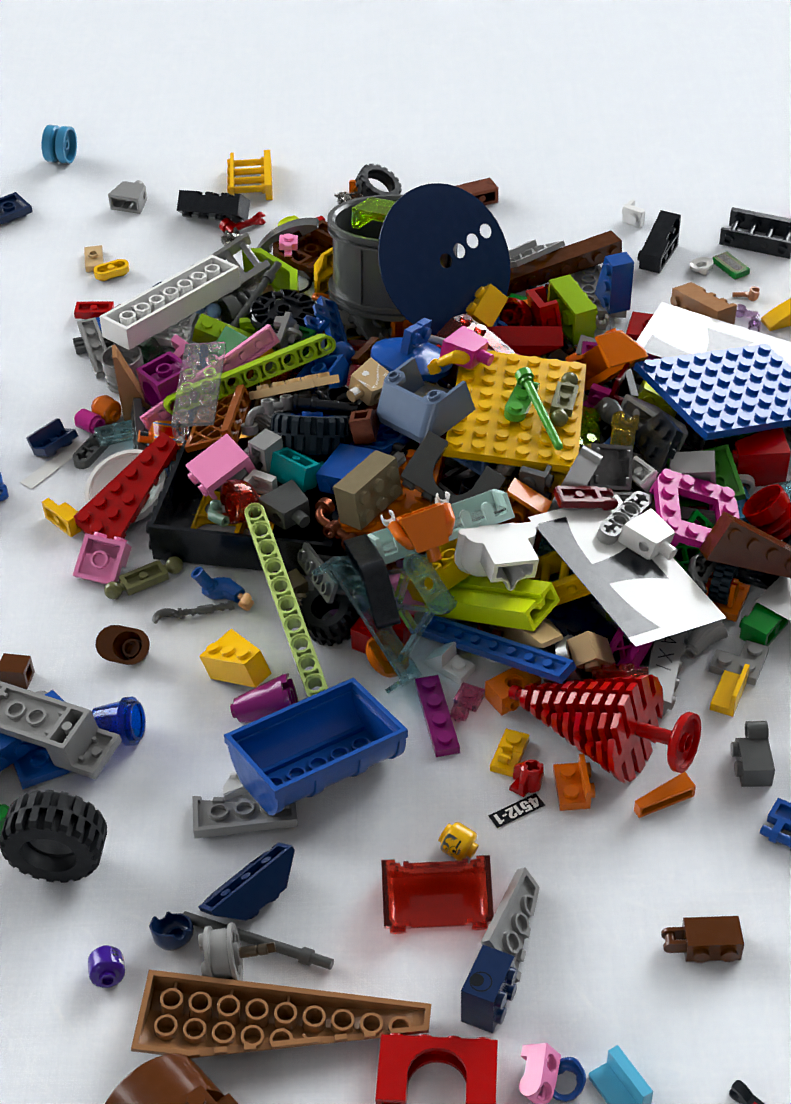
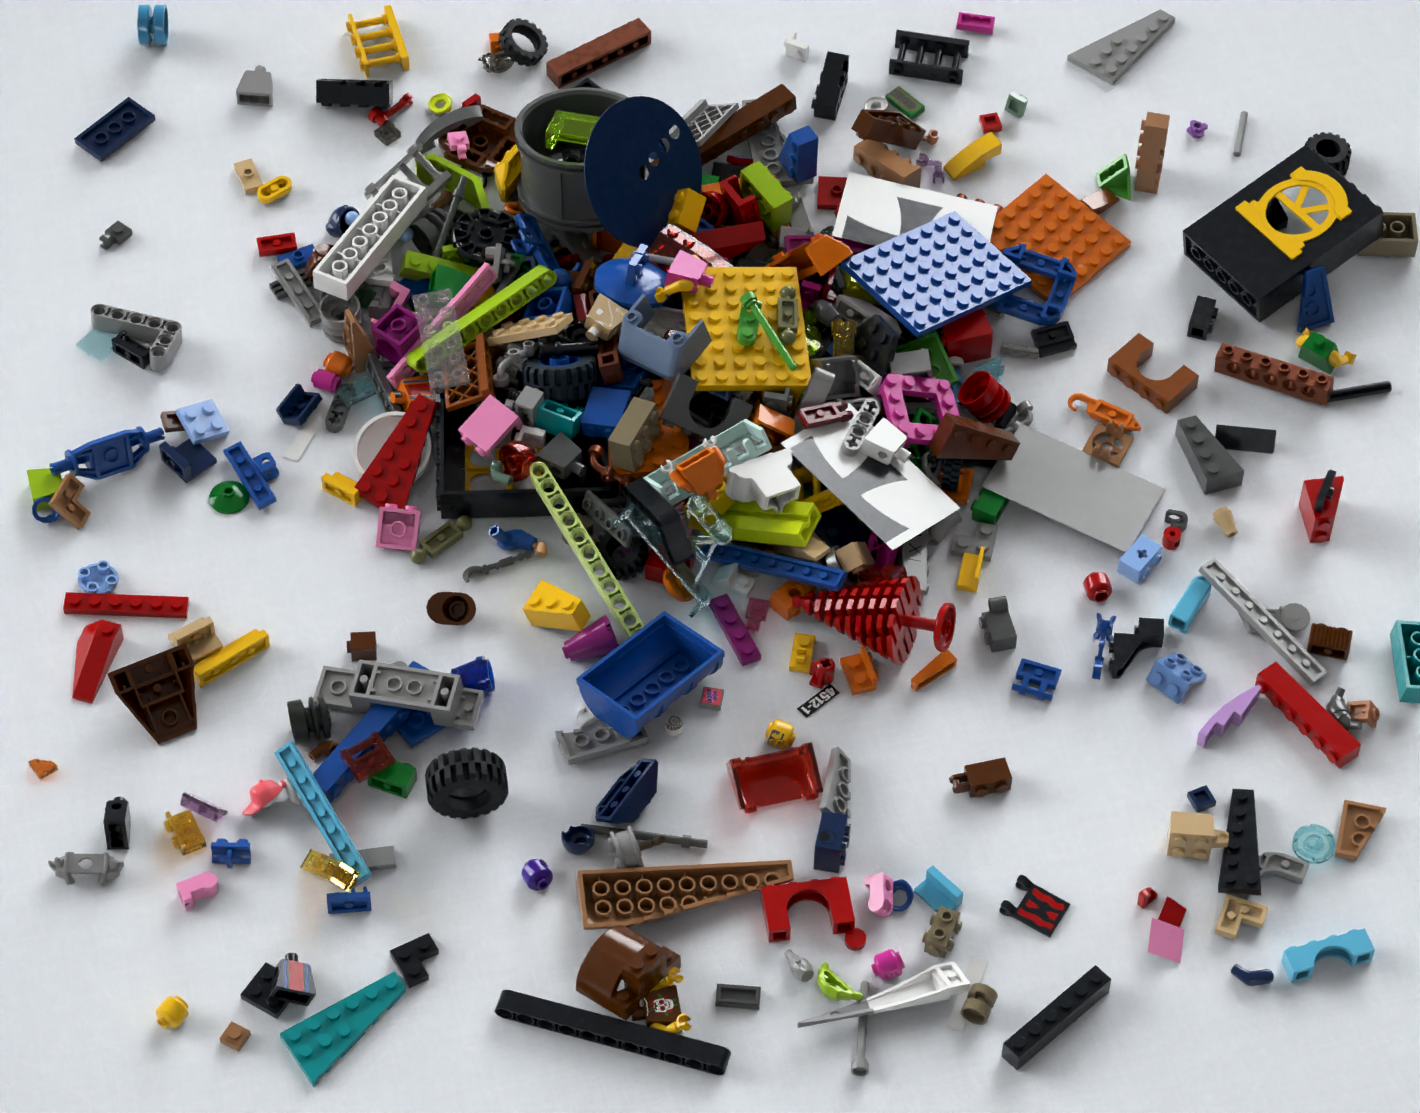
camera: 15 degrees left, 10 degrees up
(334, 811) = (673, 725): none -> white tile
(388, 787) = (712, 698): none -> tile
(708, 274) = (888, 128): none -> reddish brown wedge

